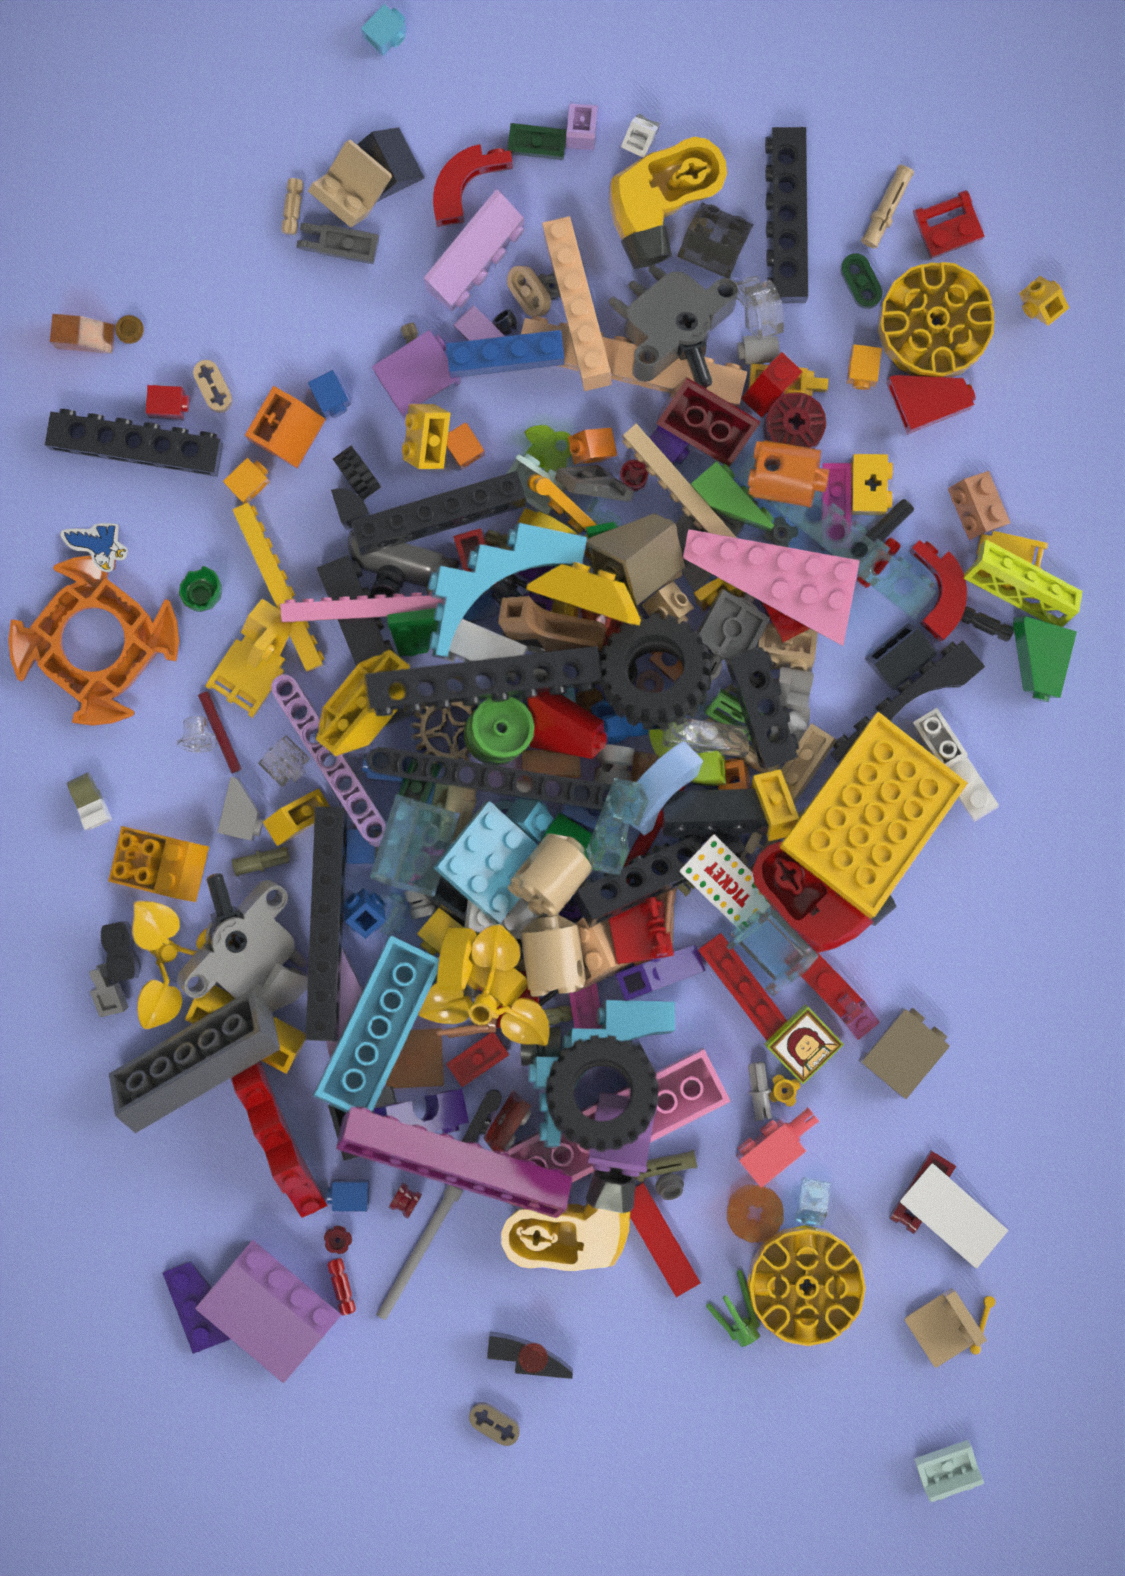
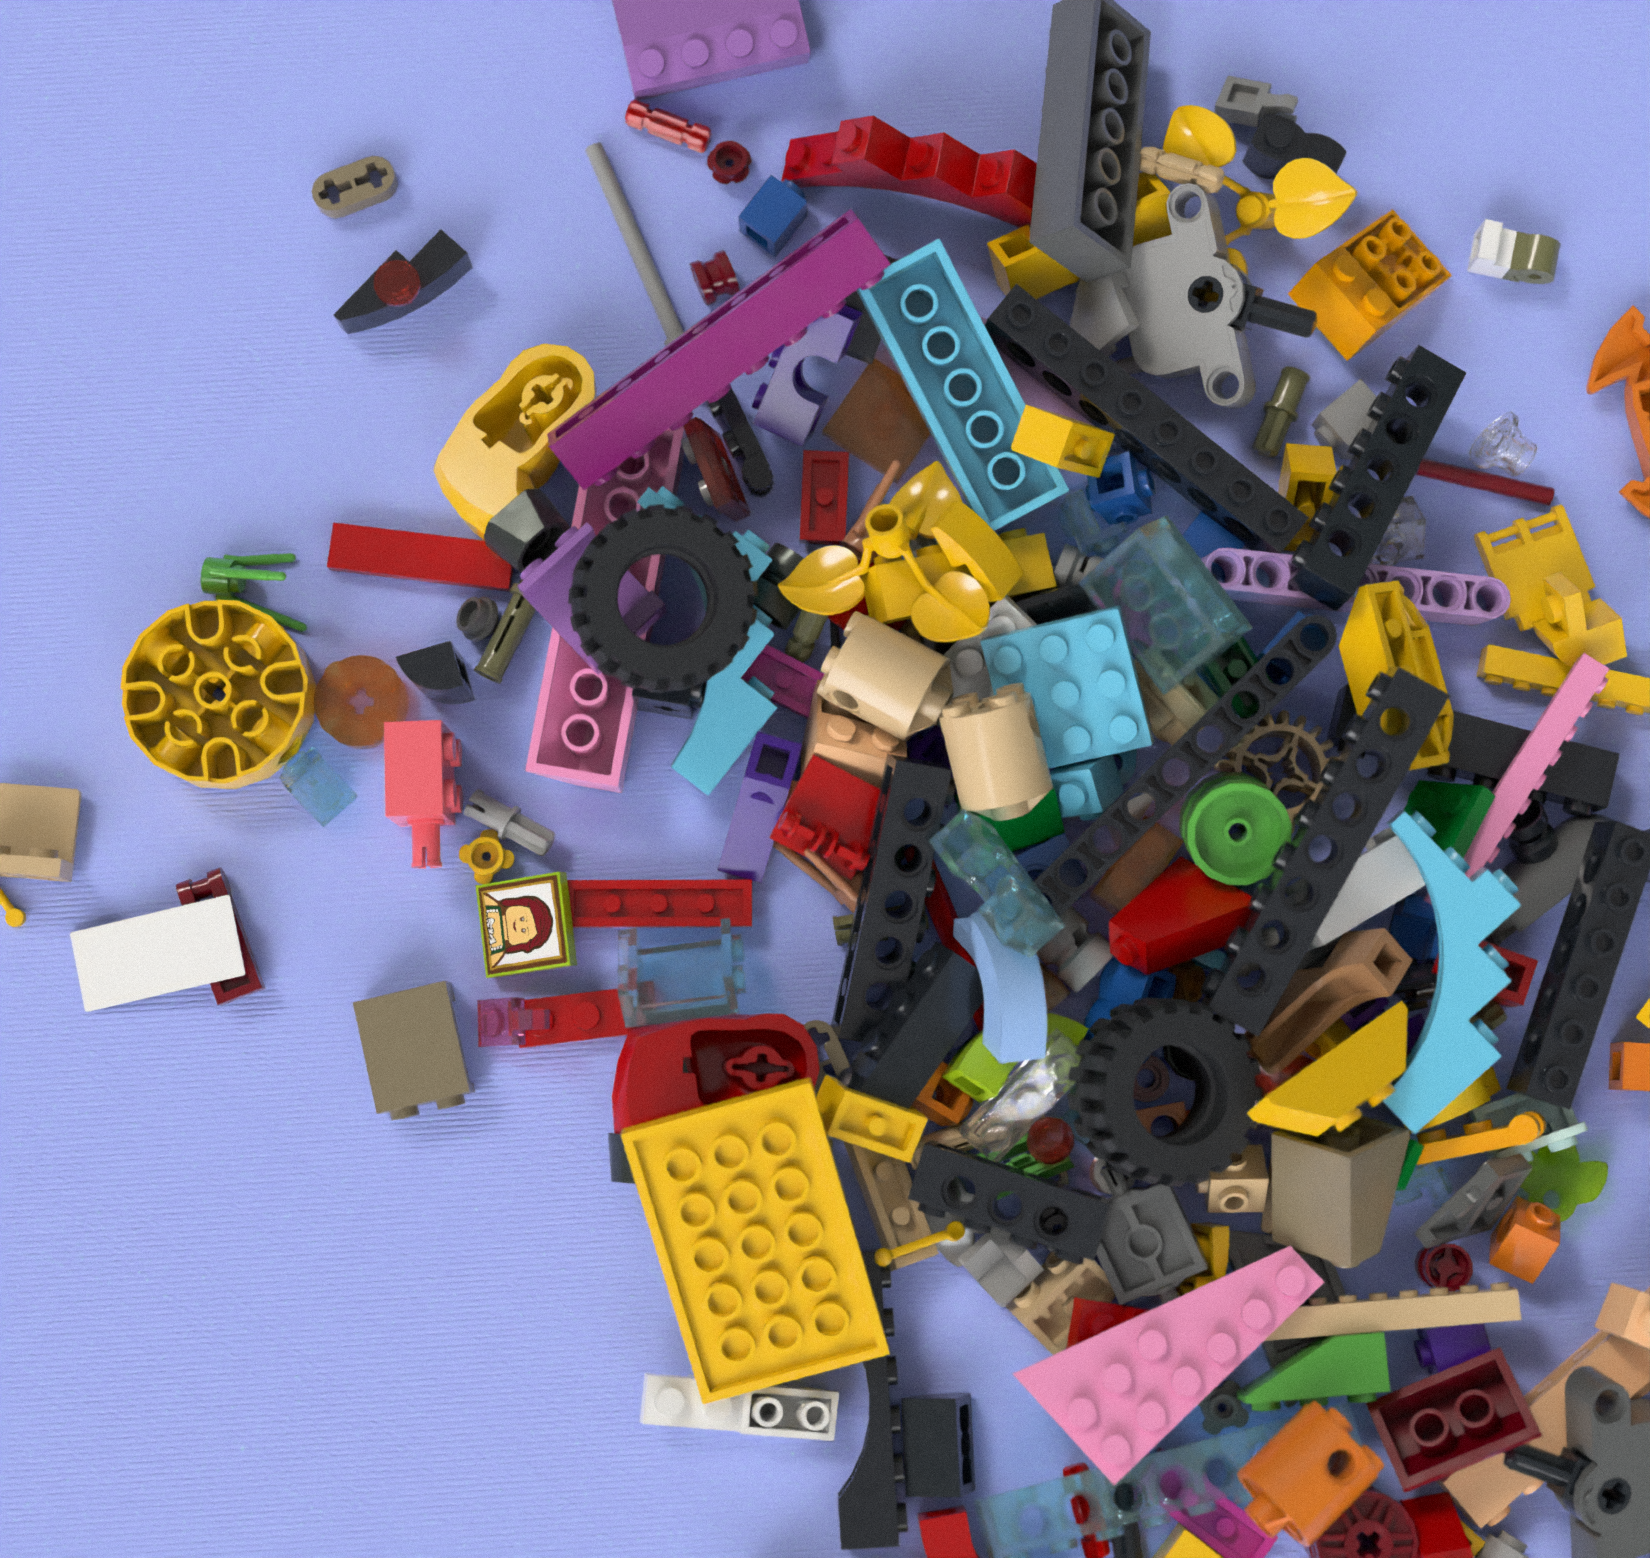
camera: 125 degrees right, 5 degrees down
(178, 1002) = (1181, 169): none -> tan axle
(196, 792) = (1432, 387): none -> black brick
(367, 957) = (1062, 441): none -> yellow panel
(714, 1182) = (438, 673): none -> black brick
(718, 709) = (1050, 1140): none -> clear red plate
(724, 881) = (817, 977): white sticker -> none
(795, 723) = (952, 1232): none -> yellow hinge

